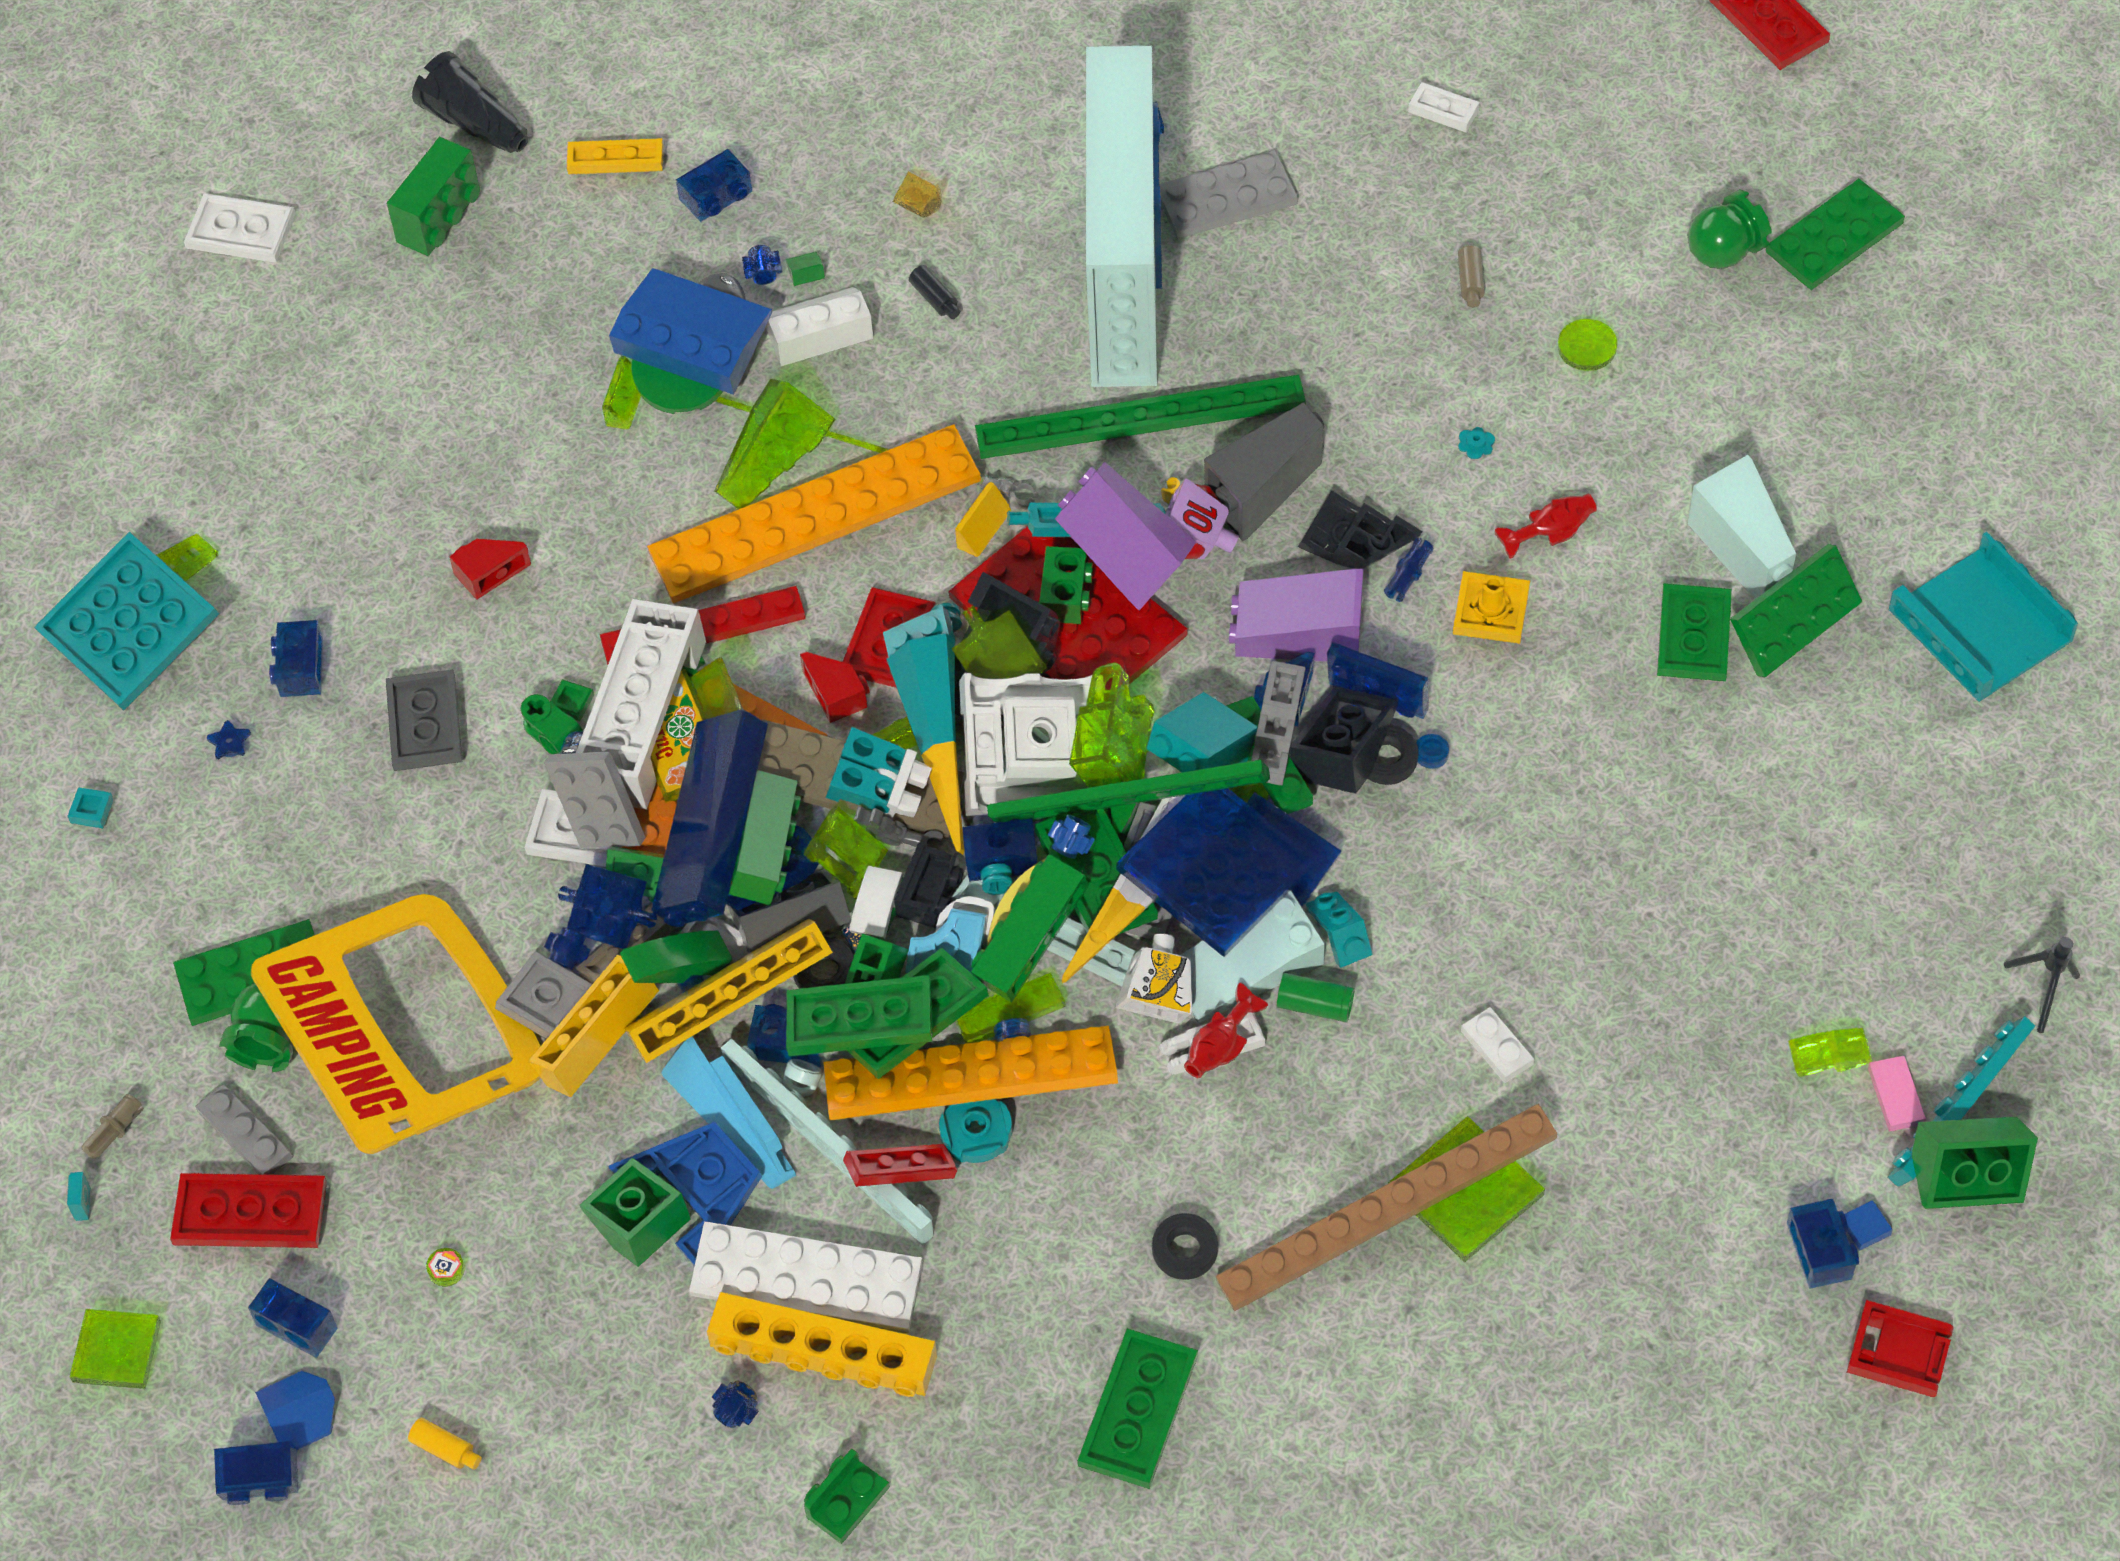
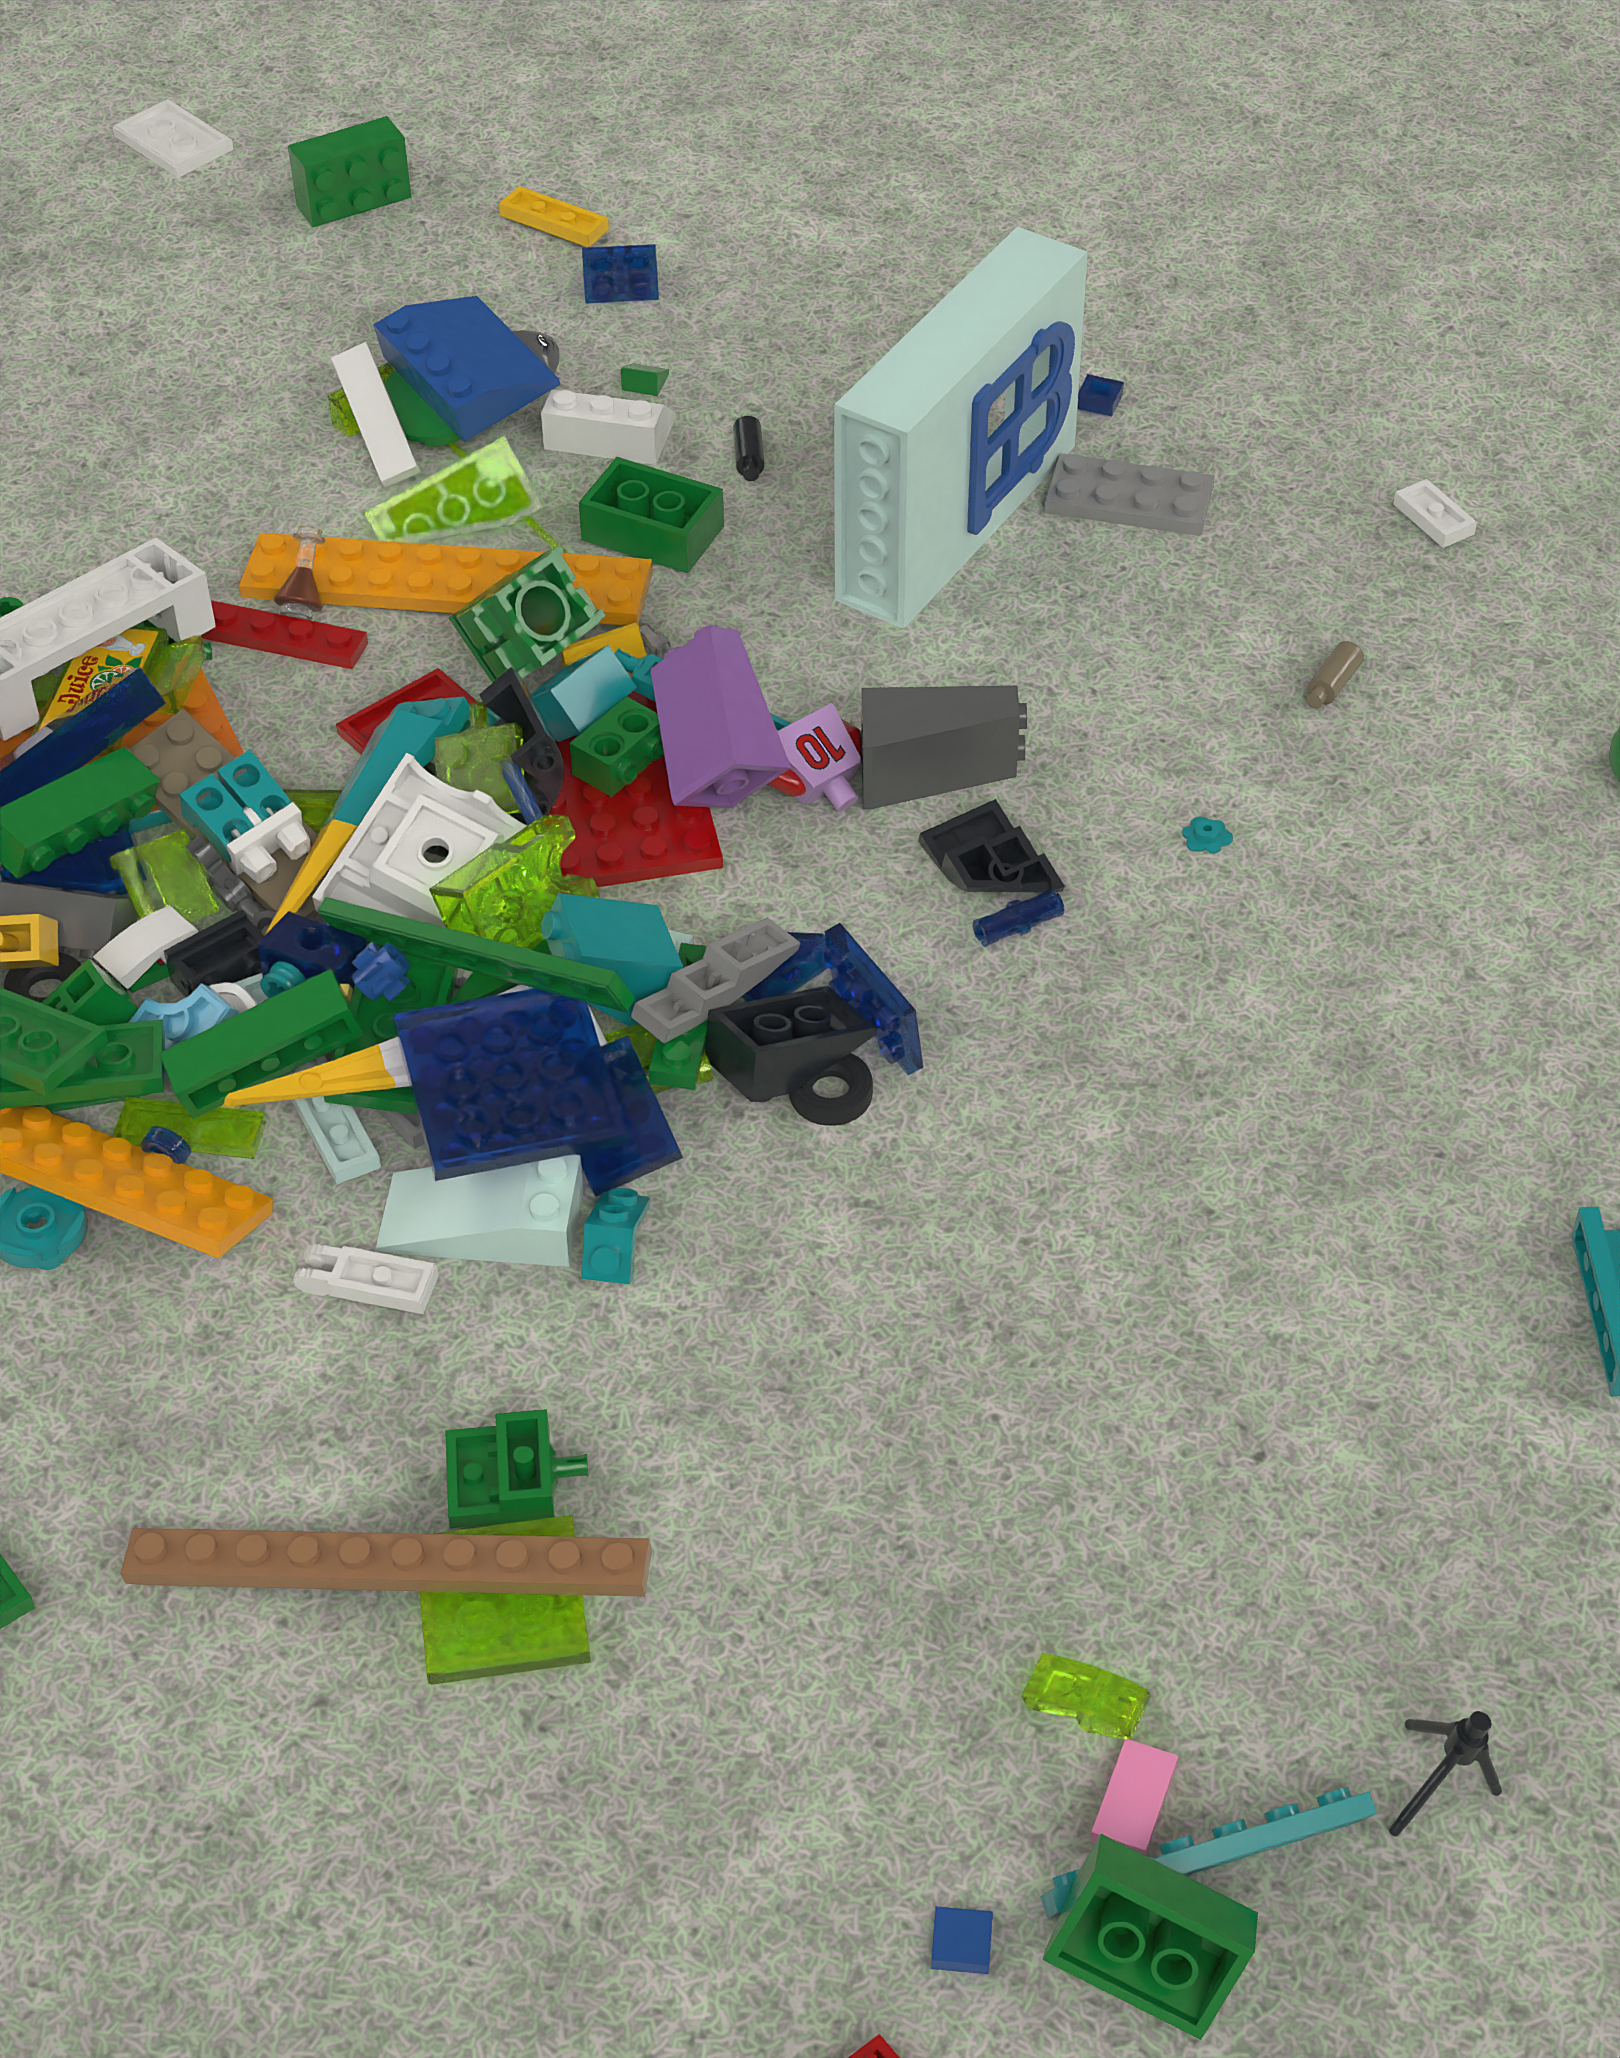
camera: 30 degrees right, 10 degrees down
(464, 101) = (453, 112): black cone -> none
(488, 564) = (100, 480): red slope -> none
(652, 405) = (375, 415): none -> white tile
(726, 579) = (300, 593): none -> piece
(762, 264) = (600, 352): clear blue gear -> none
(835, 685) = (311, 736): red slope -> none
(918, 196) = (809, 362): clear yellow plate -> none
(922, 386) = (651, 514): none -> green brick
(924, 522) = (527, 617): none -> green piece
(1005, 552) = (582, 693): none -> teal slope
(1062, 660) = (515, 794): none -> blue piece
(1139, 416) = (849, 640): green plate -> none
(1158, 982) = (353, 1175): torso -> none
(1185, 1225) = (139, 1504): black tyre -> none
(1218, 1040) = (365, 1272): red animal -> none
(1297, 615) = (876, 896): medium lavender slope -> none
(1315, 997) = (519, 1291): green pin -> none
(1404, 1112) = (505, 1471): none -> green plate
(1432, 751) = (886, 1110): clear blue tile -> none
(1494, 599) = (1086, 989): yellow plate -> none
(1497, 1045) = (685, 1460): white plate -> none
(1556, 521) = (1229, 949): red animal -> none
(1587, 344) = (1414, 796): clear neon green piece -> none
(1694, 632) = (1299, 1139): green plate -> none
(1742, 526) = (1437, 1051): light aqua slope -> none
(1796, 610) = (1440, 1170): green plate -> none
(1822, 1243) = (861, 1951): clear blue brick -> none

